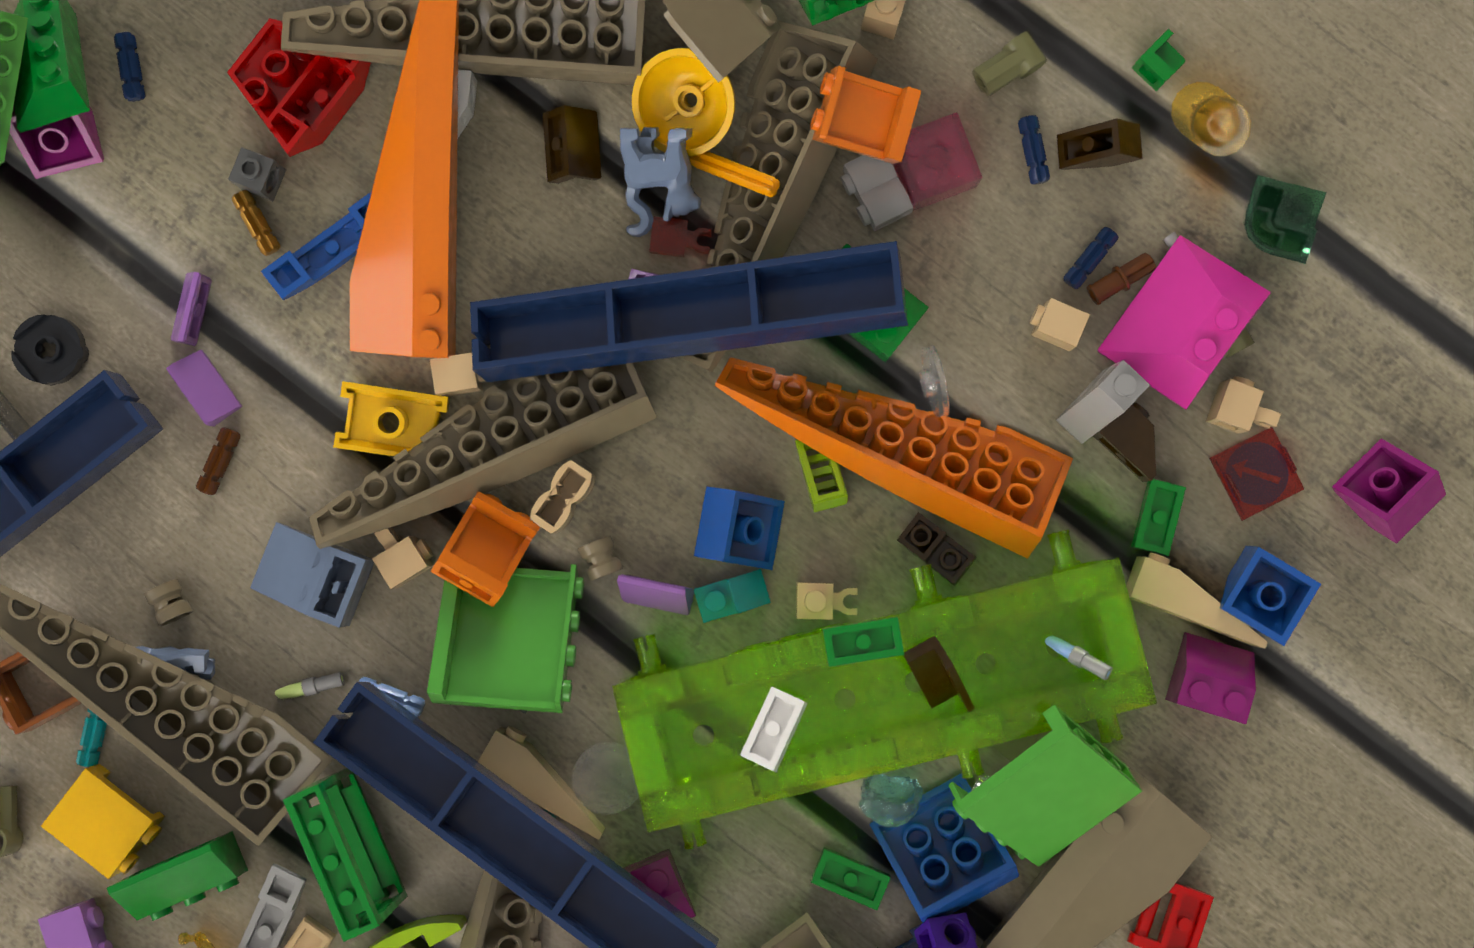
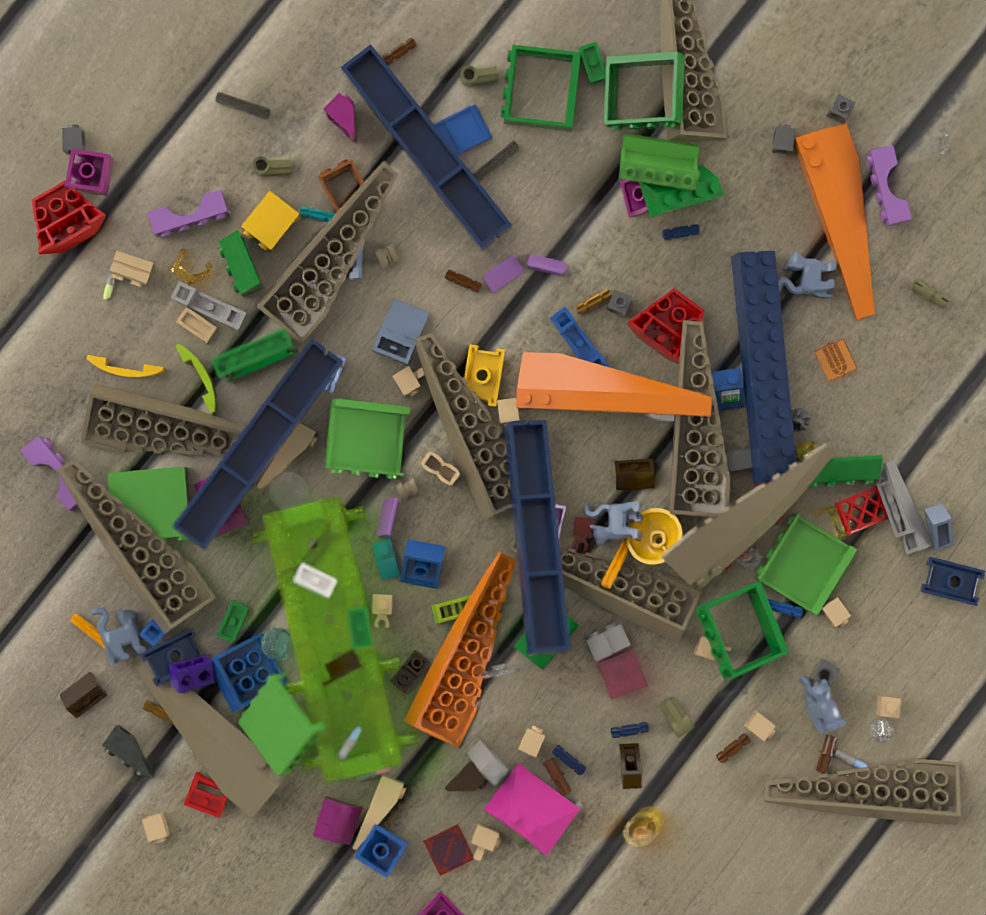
camera: 85 degrees right, 0 degrees up
(69, 351) = (535, 192): black plate -> none
(311, 686) = (340, 330): light grey piece -> none
(485, 548) = (413, 427): orange panel -> none
(864, 115) = (643, 635): orange panel -> none
(1158, 517) = (425, 793): green plate -> none
(1159, 62) = (678, 801): green panel -> none
(1282, 217) = (588, 864): clear green brick -> none

